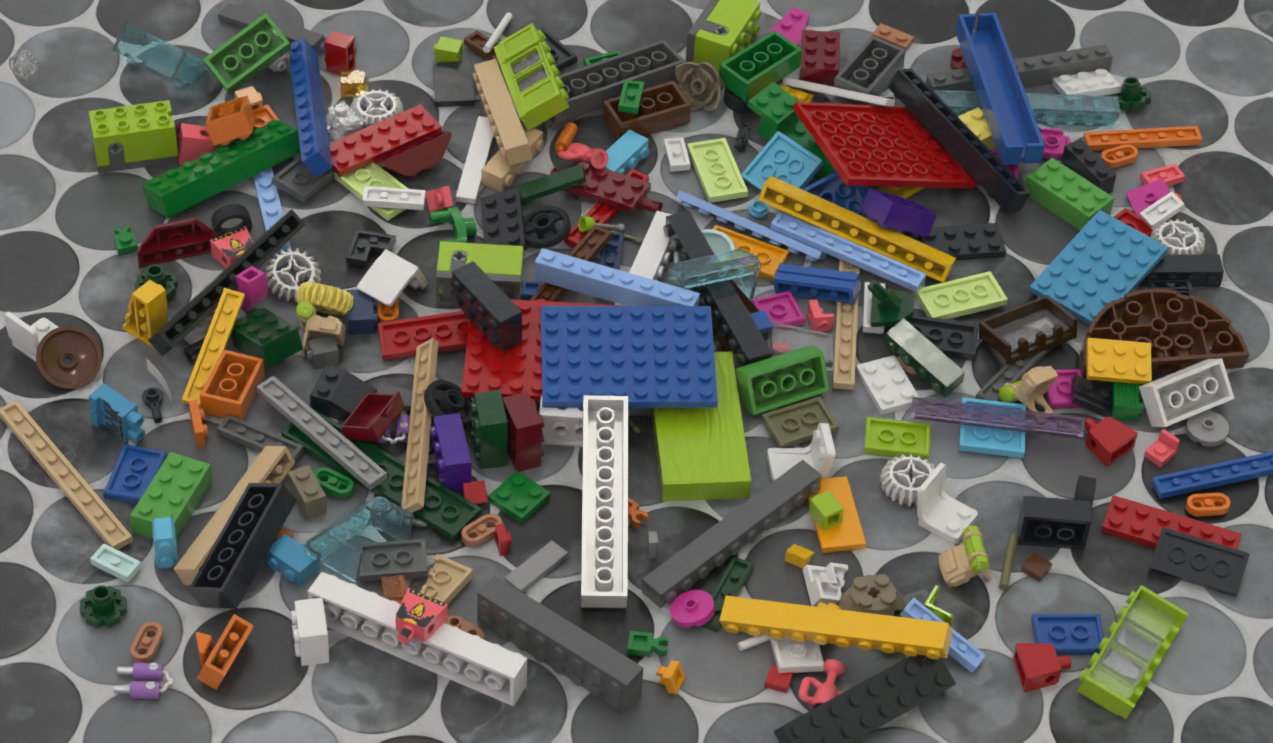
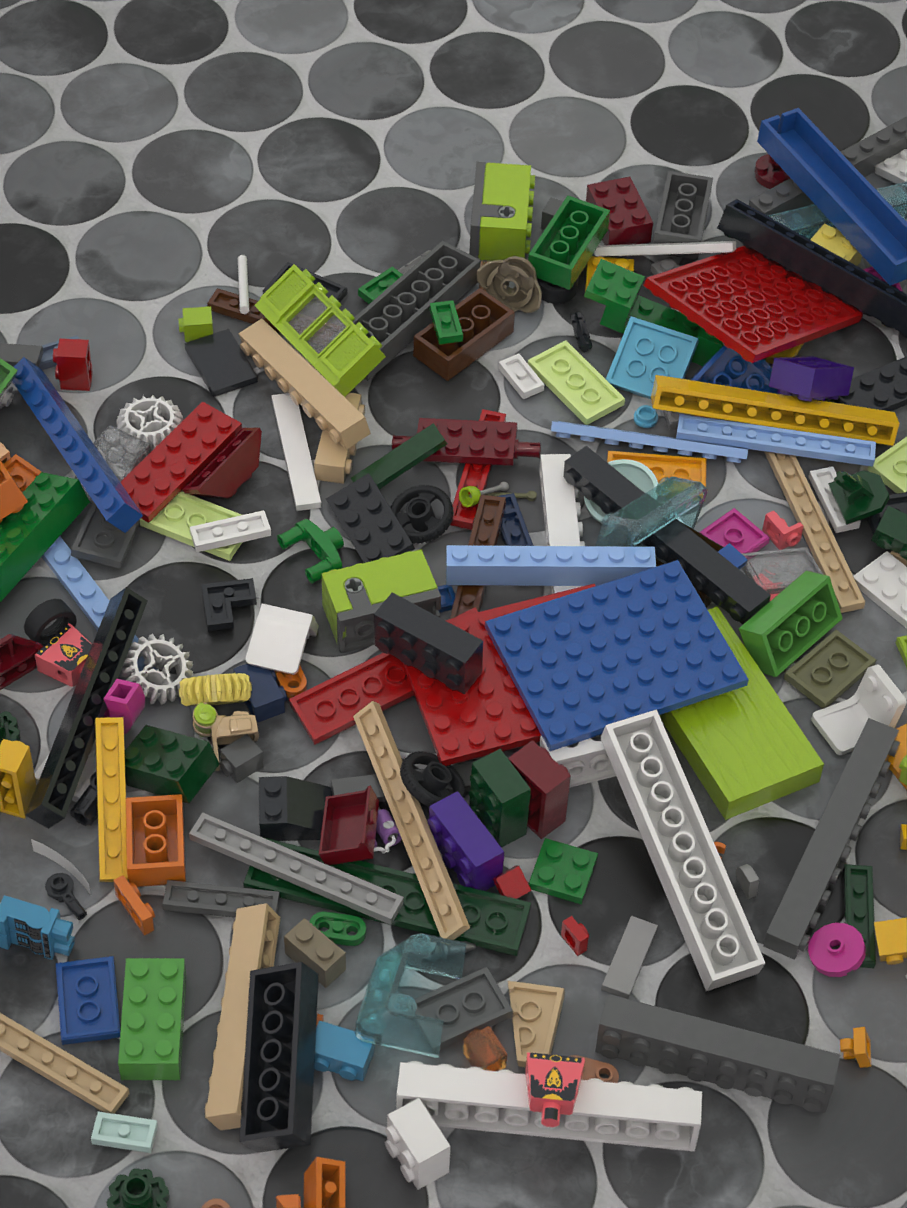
camera: 20 degrees left, 5 degrees up
(165, 542) = (178, 1085): medium azure brick -> none
(353, 83) = (105, 397): clear yellow brick -> none
(439, 199) = (282, 514): coral bracket -> none
(479, 531) = (543, 933): nougat plate -> none
(566, 137) = (385, 393): orange cylinder -> none
(582, 152) = (415, 407): coral piece -> none
(627, 152) = (464, 393): medium azure brick -> none
(643, 644) = (804, 1016): green plate -> none
(792, 25) = (564, 181): dark pink wing -> none
(817, 283) = (763, 489): blue brick -> none
(893, 36) = (680, 163): nougat plate -> none

